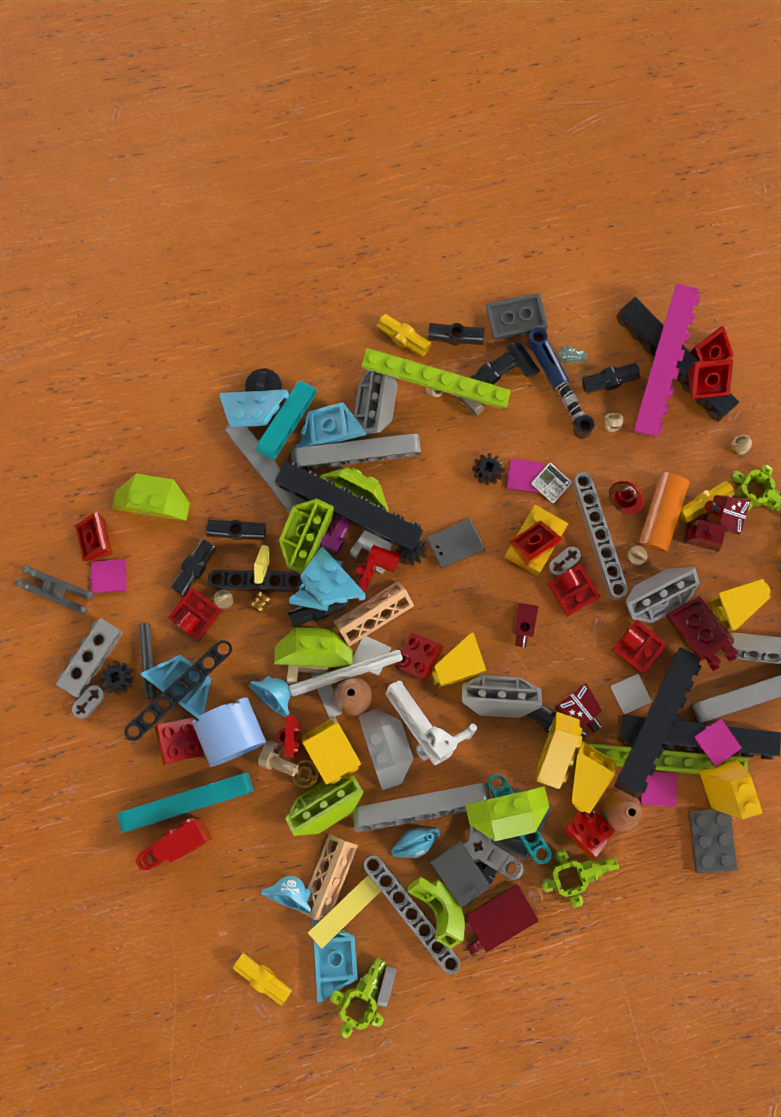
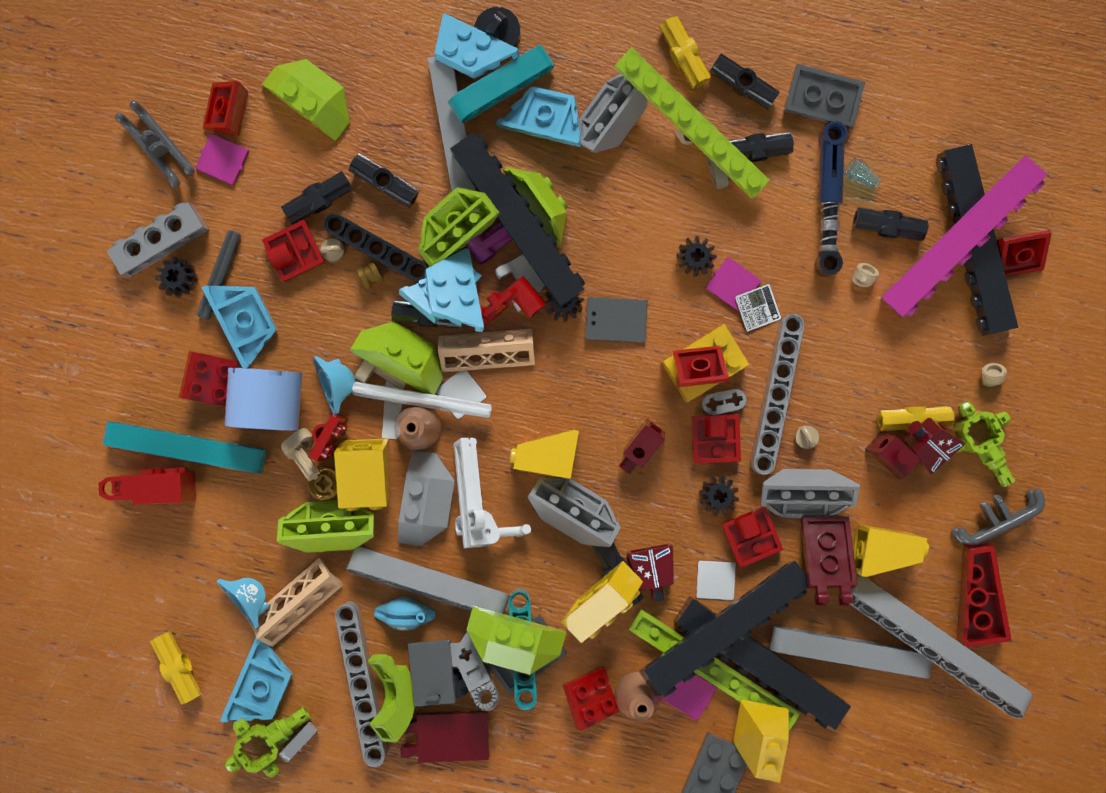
camera: 25 degrees right, 10 degrees up
(92, 705) = (137, 291): light grey beam -> none
(171, 696) = (222, 328): black beam -> none
(261, 564) = (389, 235): light yellow tile -> none
(344, 912) = (291, 646): light yellow tile -> none
(357, 451) = (561, 160): light grey beam -> none
(419, 656) = (510, 423): red plate -> none
(523, 359) = (803, 150): black plate -> none
(587, 872) = (565, 738): lime piece -> none
(591, 778) = (623, 648): yellow slope -> none
(598, 637) = (714, 503): none -> black gear
(626, 497) = (830, 367): red piece -> none
(664, 512) = (863, 405): orange brick -> none
(710, 378) = (1000, 284): red slope -> none
(717, 742) = (777, 681): dark pink piece -> none

